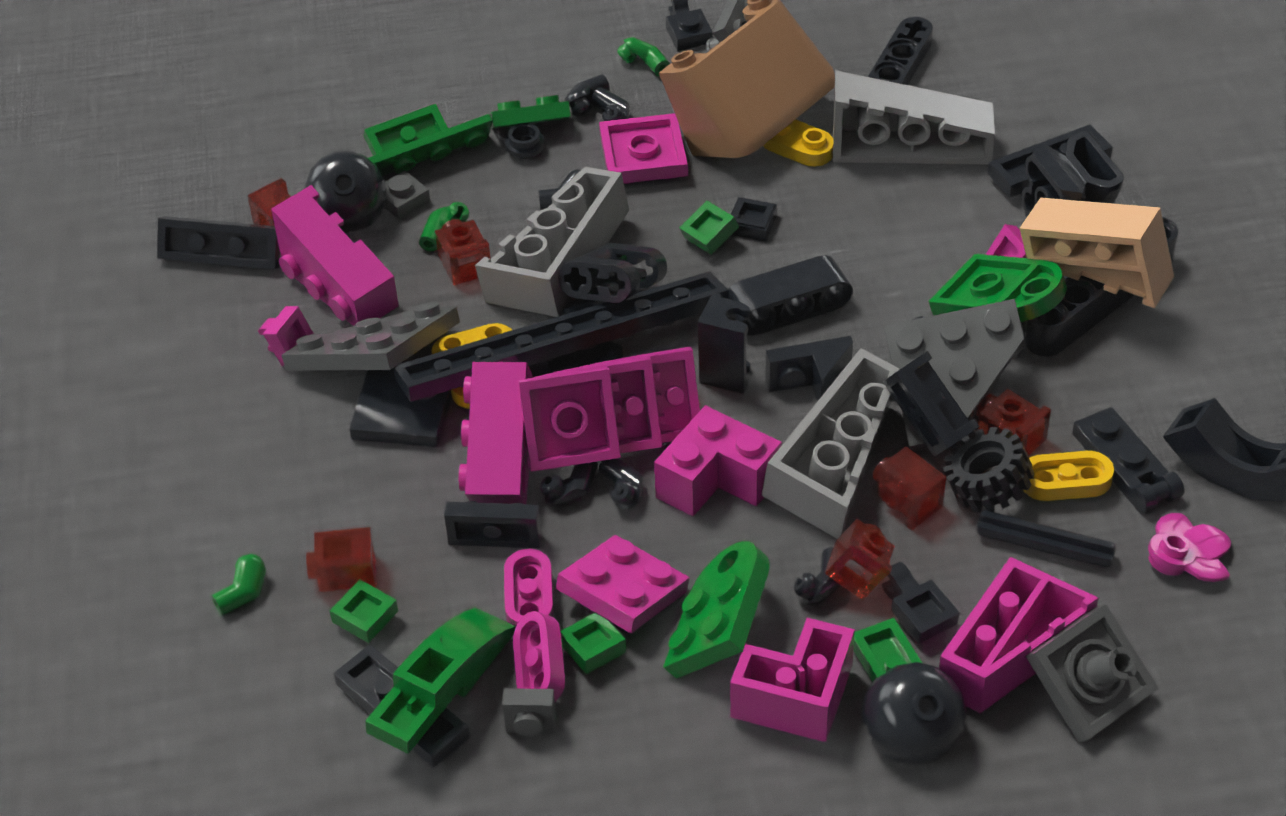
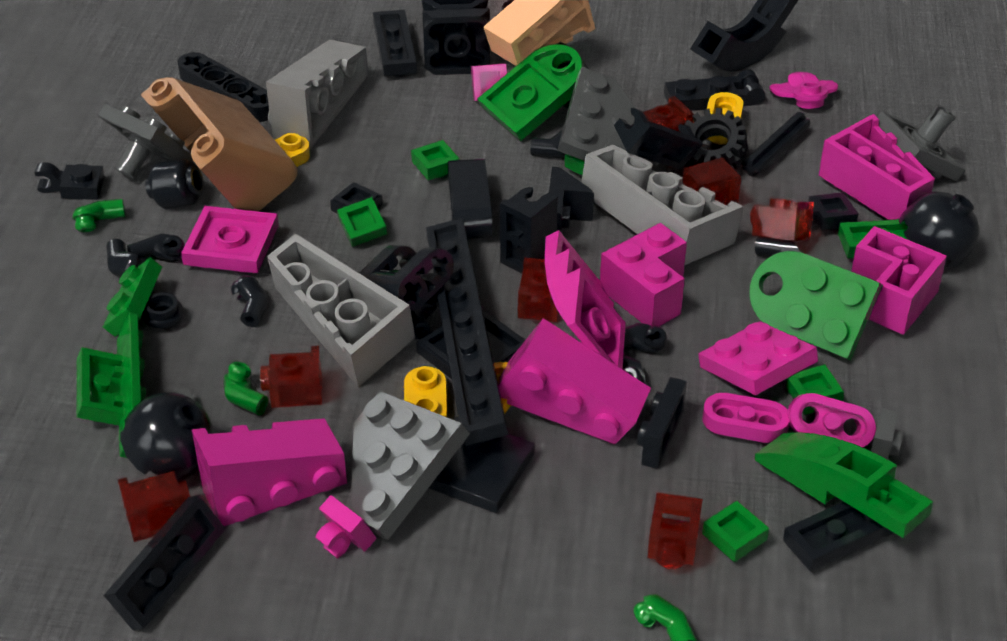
camera: 75 degrees left, 5 degrees down
(847, 250) = (433, 159): none -> green plate

